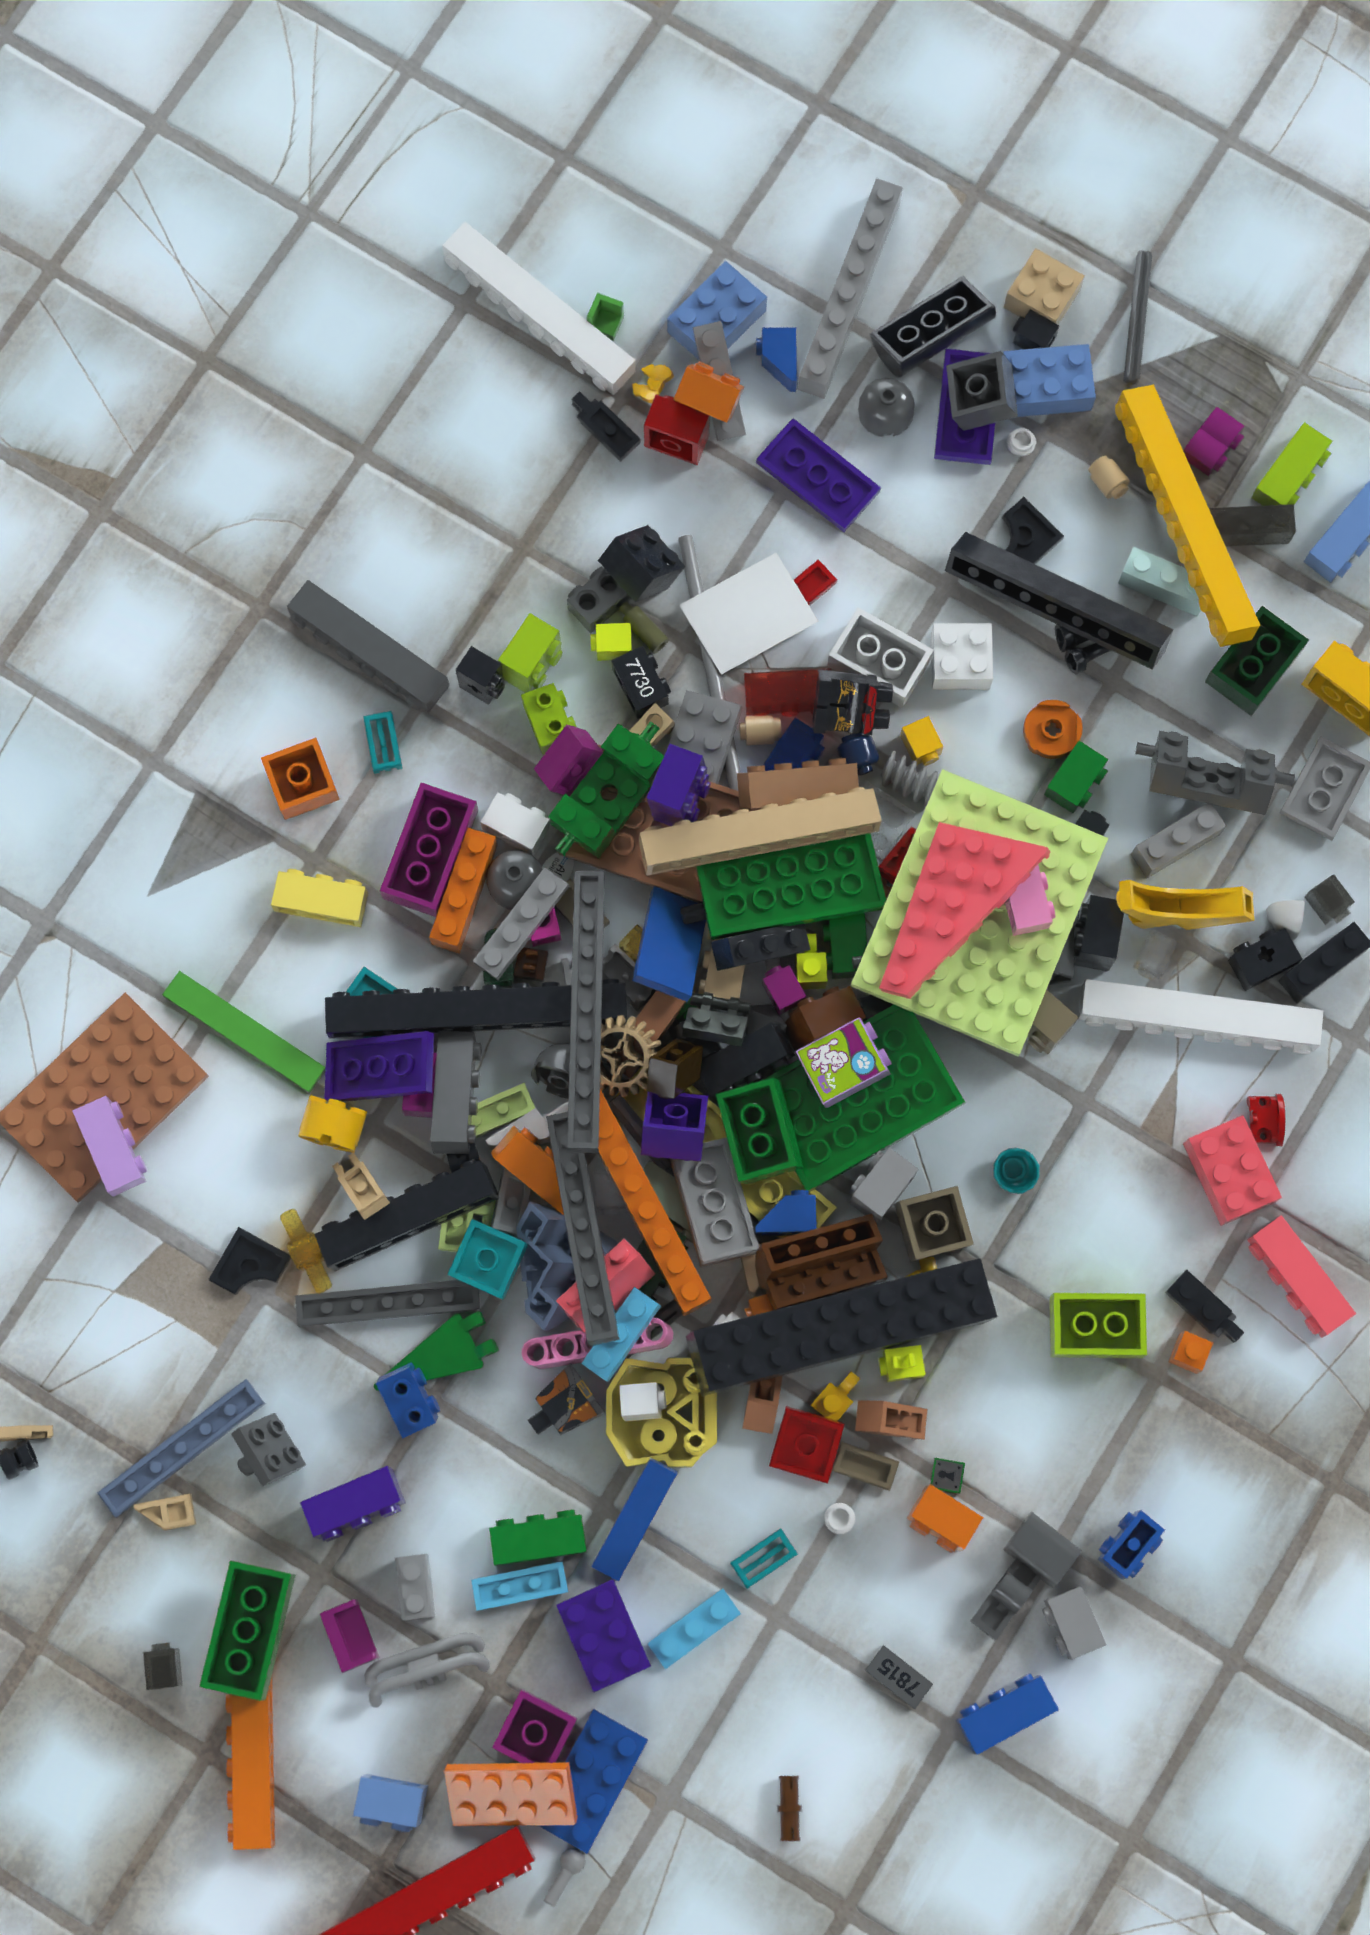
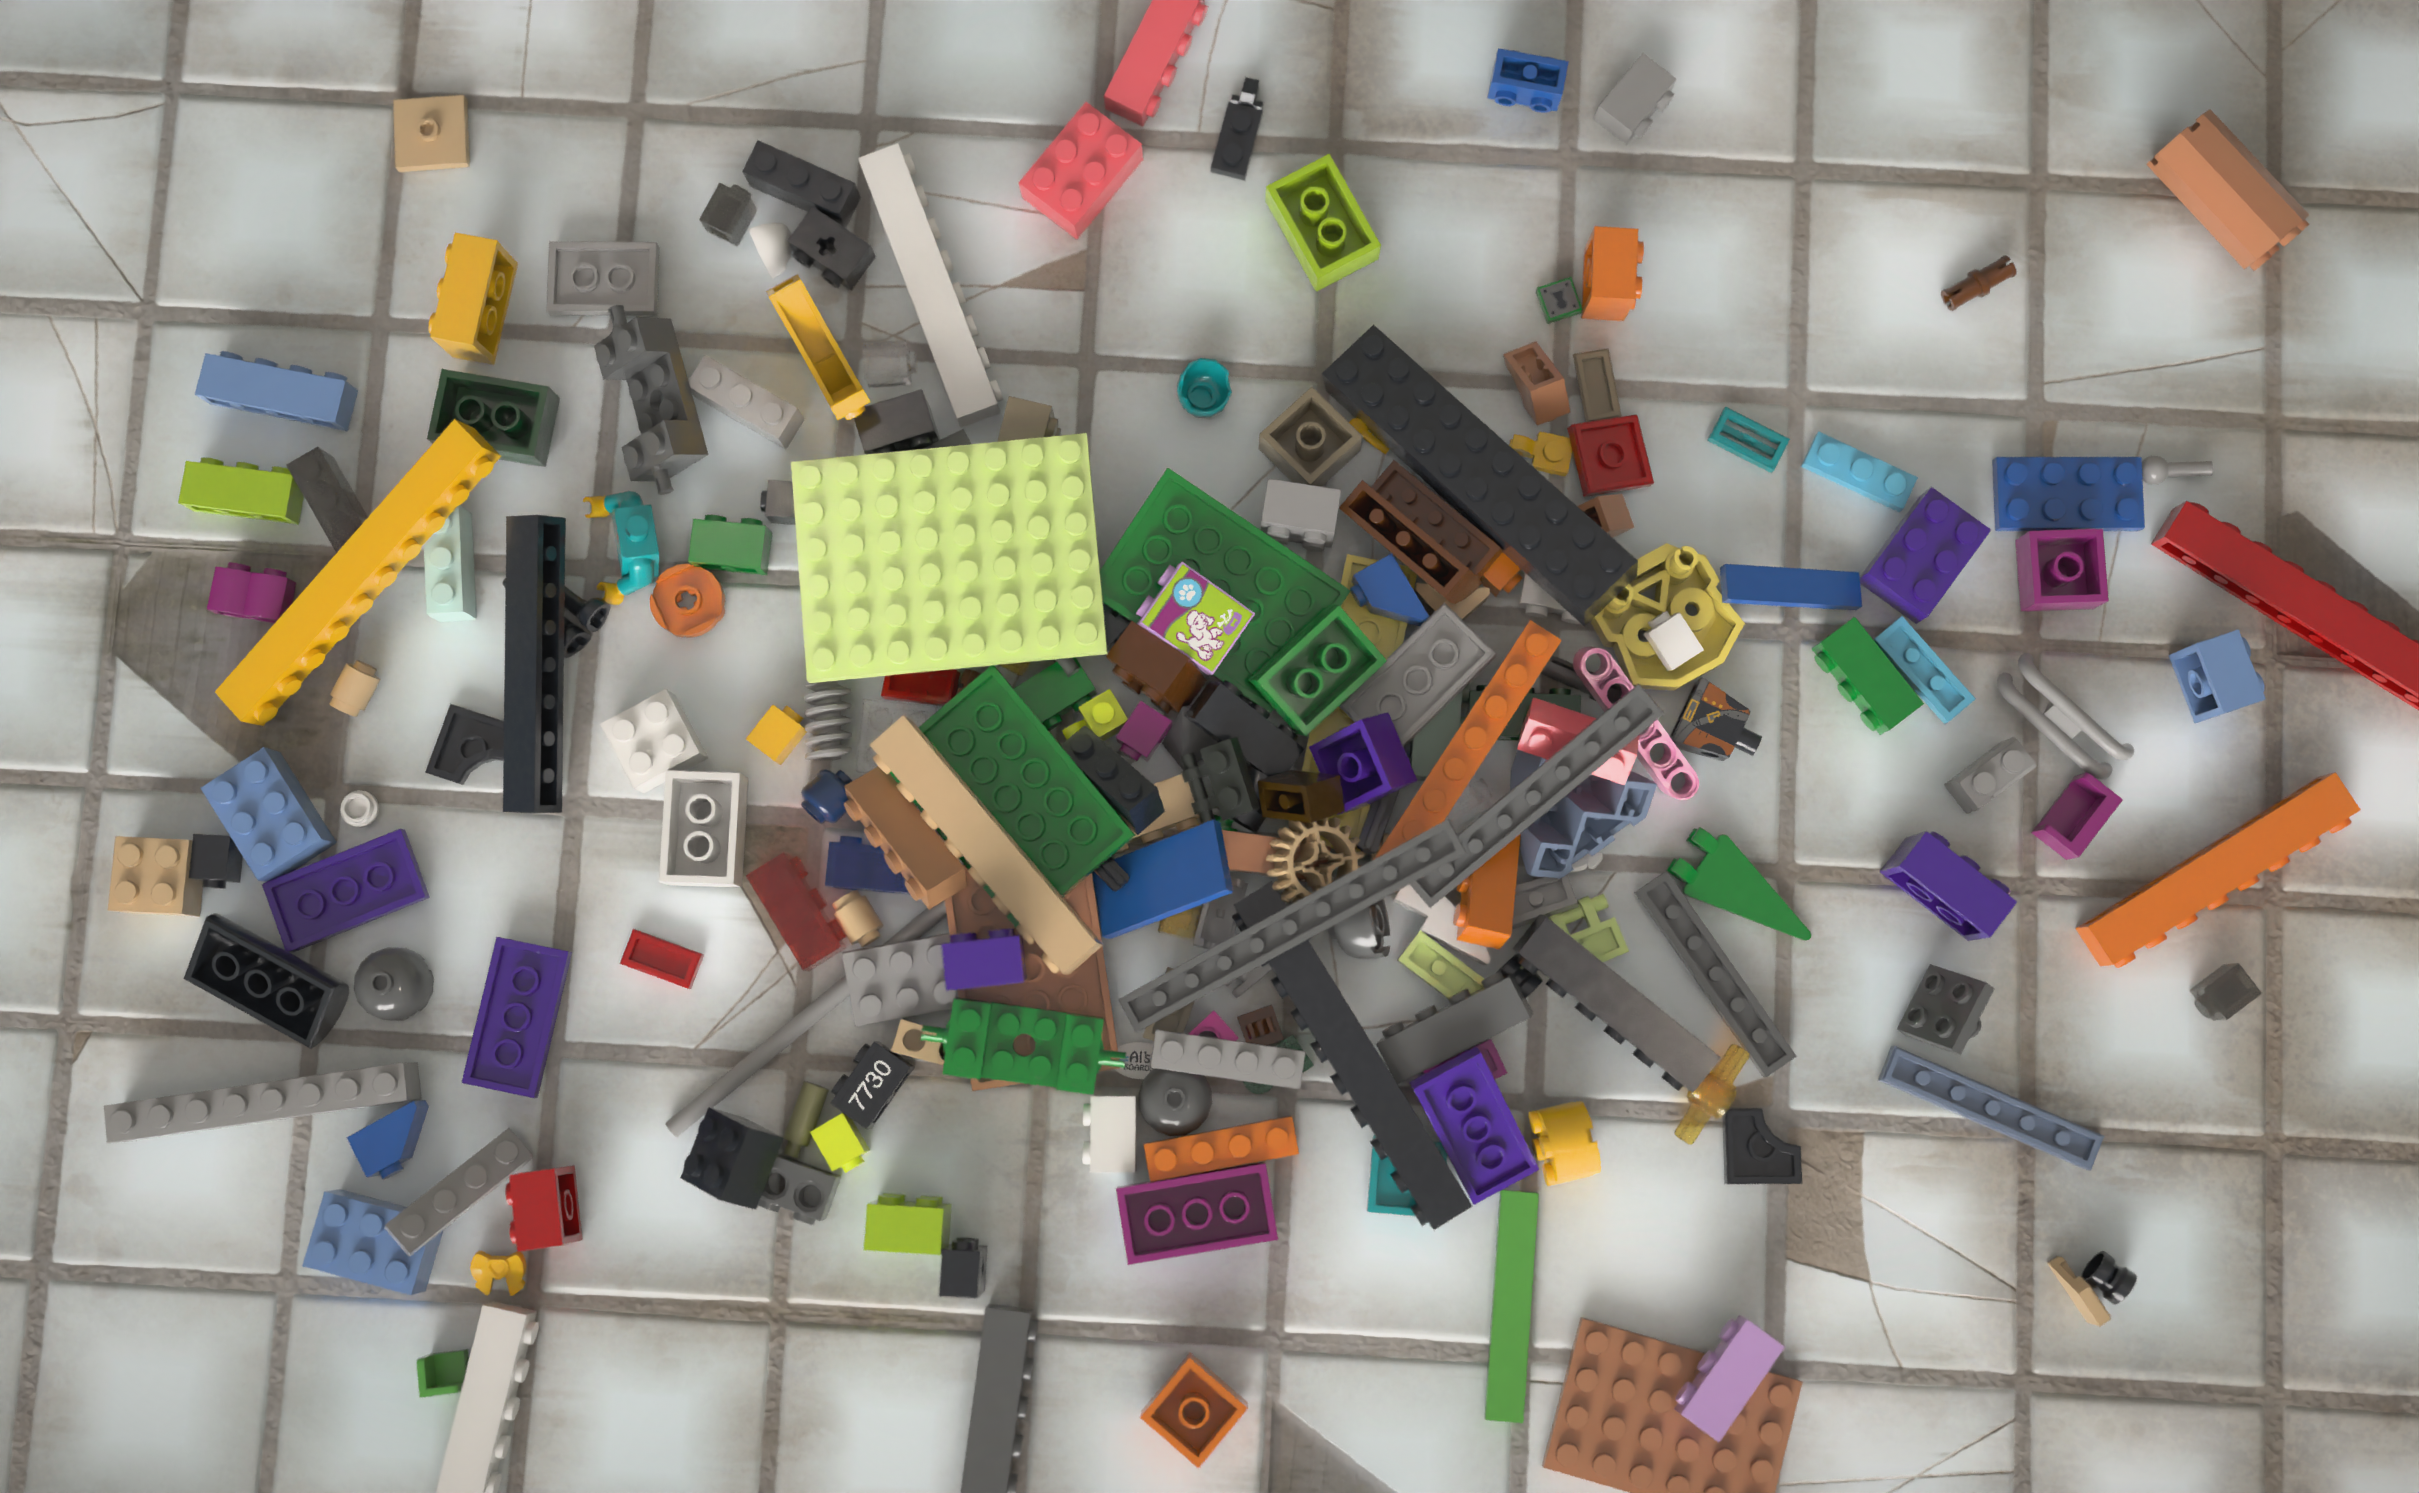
camera: 115 degrees left, 5 degrees up
(169, 1512) = (2062, 1081): tan tile -> none
(247, 1630) = (2149, 917): green brick -> none
(319, 897) = (1316, 1307): light yellow brick -> none
(361, 1187) = (1616, 1069): tan hinge -> none
(387, 765) = (1121, 1320): teal tile -> none
(405, 1400) = (1807, 891): blue brick -> none
(487, 1259) = (1614, 888): teal plate -> none
(510, 1794) = (2138, 559): plate -> none
(546, 714) = (969, 1165): lime brick -> none
(568, 760) = (1010, 1112): magenta panel -> none
(605, 426) = (581, 1297): black hinge -> none
(631, 1322) = (1600, 692): medium azure plate -> none
(709, 392) = (482, 1188): orange brick -> none
(748, 613) = (726, 1006): white sticker -> none
(839, 1518) = (1664, 384): white plate -> none
(849, 703) = (777, 830): black hips -> none
(898, 1677) = (1787, 245): dark grey tile -> none
(902, 1363) = (1476, 396): neon yellow brick -> none
(956, 890) = (946, 584): coral wing -> none
(982, 390) = (321, 876): dark grey brick -> none
(1006, 1713) = (1762, 119): blue brick -> none
(1029, 906) = (912, 506): bright pink brick -> none
(1038, 1555) = (1587, 169): dark grey plate -> none
(1114, 711) = (634, 542): none -> teal torso
(1137, 317) = (136, 756): dark grey axle -> none
(1190, 1352) = (1296, 119): orange brick -> none
(1267, 1119) = (1002, 163): red piece -> none

